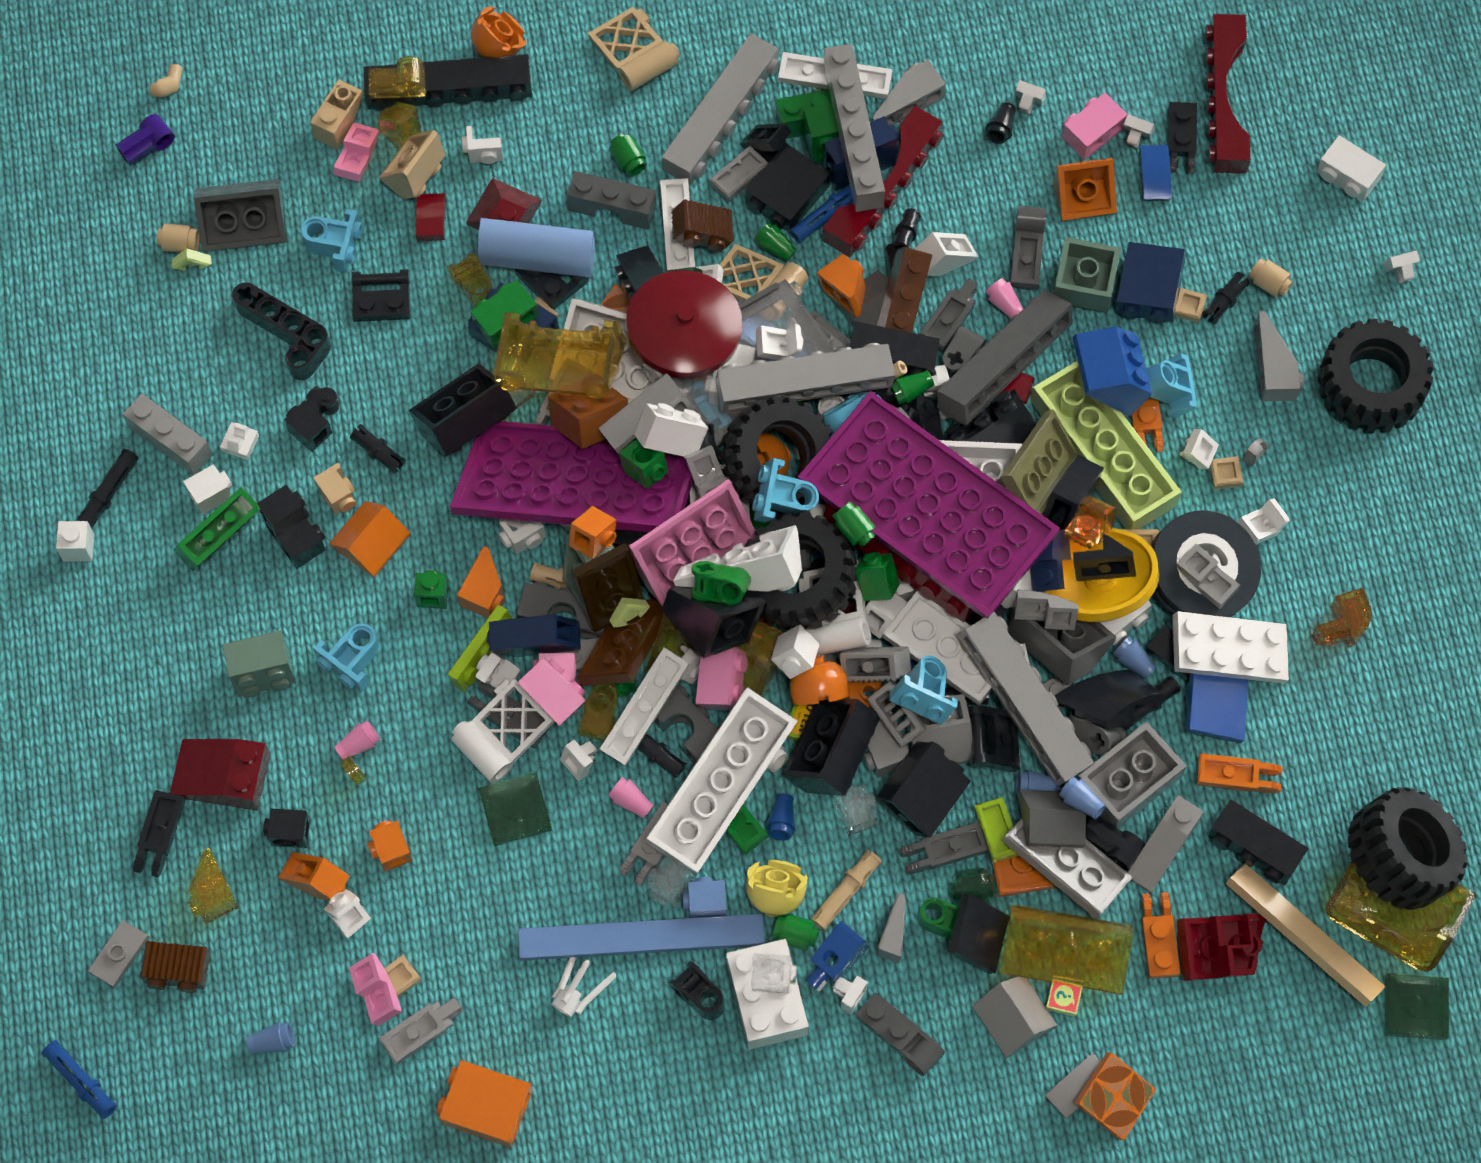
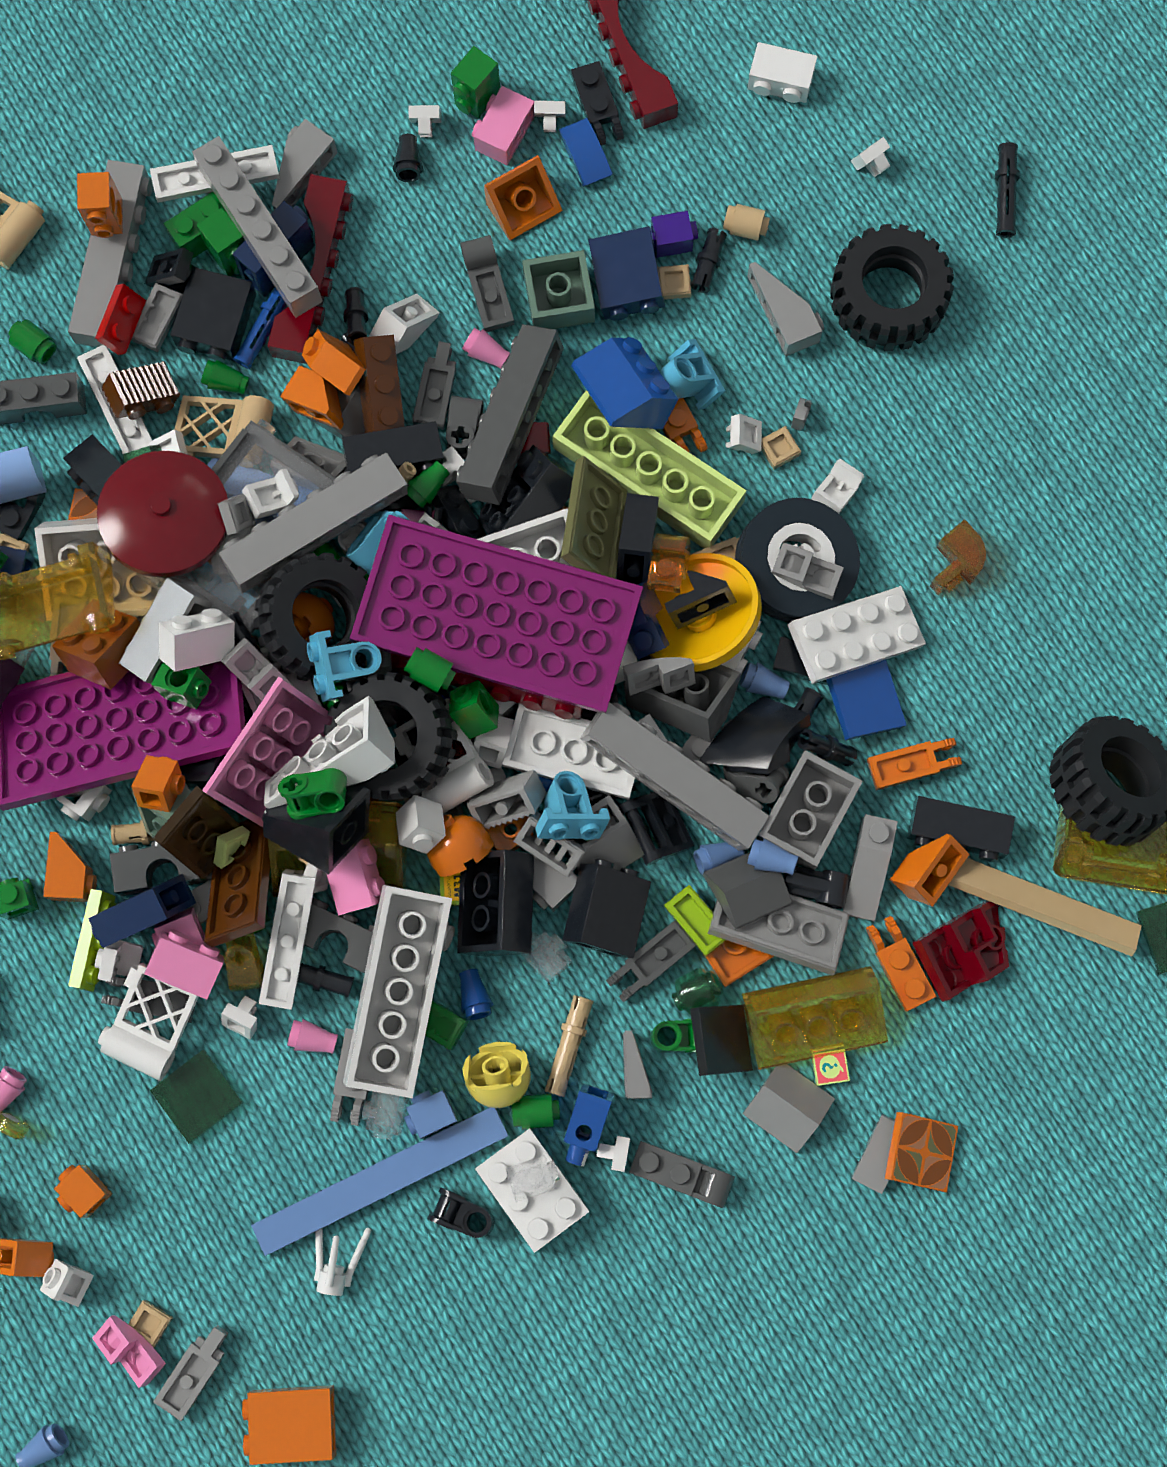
camera: 20 degrees left, 10 degrees up
(709, 162) = (120, 319): none -> red plate
(731, 64) = (99, 204): none -> orange brick
(743, 346) = (235, 514): none -> light grey tile
(873, 259) = (333, 361): none -> orange slope
(1083, 81) = (475, 82): none -> green brick
(1167, 729) = (827, 747): none -> black pin
(1204, 265) = (673, 233): none -> dark purple brick
(1216, 864) = (930, 869): none -> orange slope

